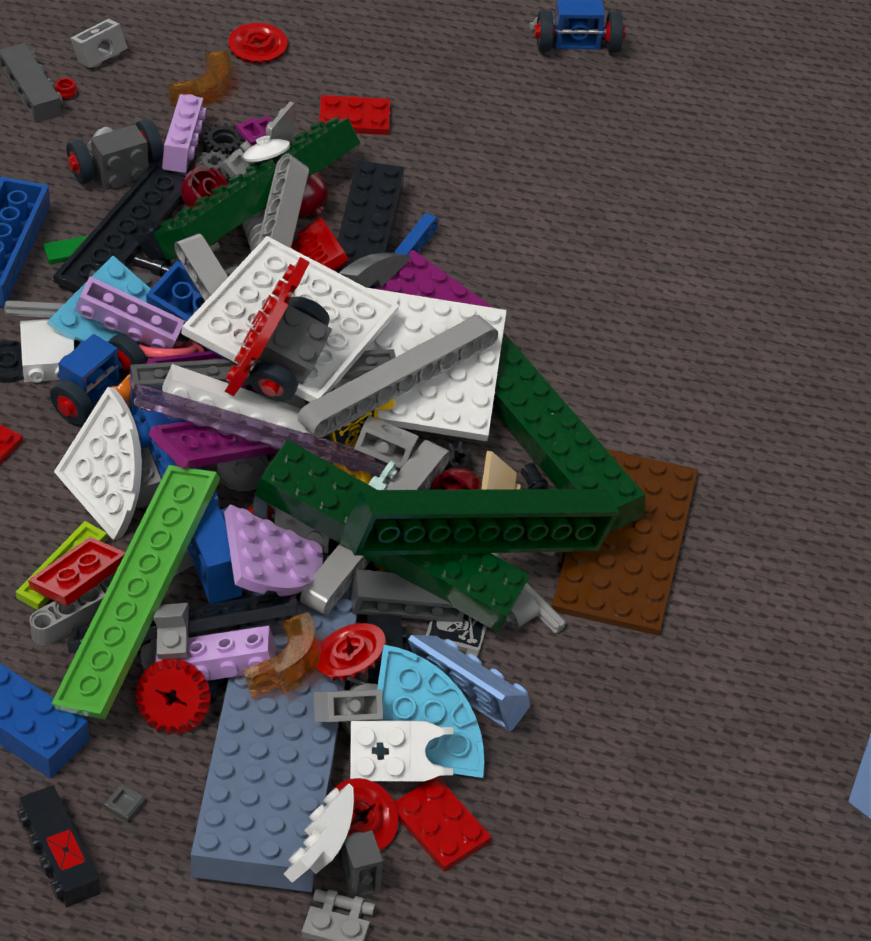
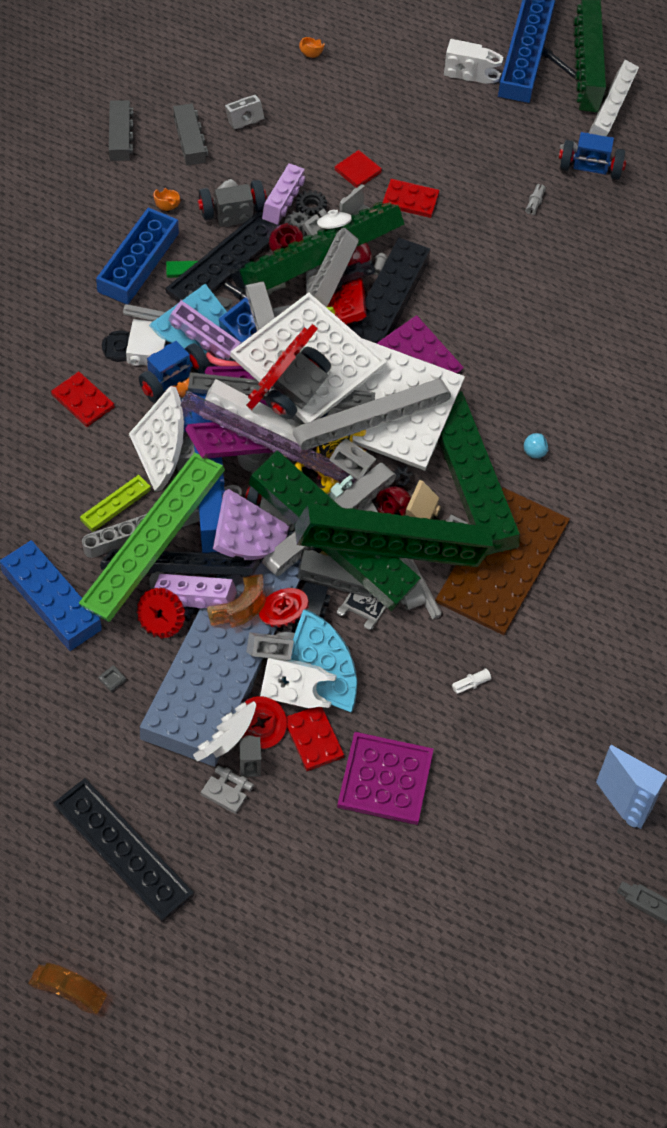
camera: 15 degrees right, 10 degrees up
(22, 166) = (167, 199): none -> orange hair
(59, 846) = (61, 698): black brick -> none
(66, 88) = (213, 143): red plate -> none
(77, 571) = (121, 511): red plate -> none
(172, 630) = (168, 570): light grey slope -> none
(211, 85) = (315, 158): clear orange arch -> none
(243, 38) = (368, 124): red gear -> none
(253, 129) = (332, 199): magenta slope -> none
(272, 90) = (358, 169): none -> red tile
(315, 208) = (357, 270): none -> black hinge
(339, 199) = (380, 261): none -> light grey pin
(375, 268) = (381, 327): dark grey slope -> none
(419, 235) = (420, 308): blue beam -> none
(482, 687) = (361, 642): light blue slope -> none
(519, 91) = (535, 199): none -> light grey pin
(533, 477) = (452, 504): black pin -> none
(560, 856) = (385, 778): none -> magenta plate
(622, 386) = (536, 446): none -> medium azure piece
(636, 702) = (471, 681): none -> white axle

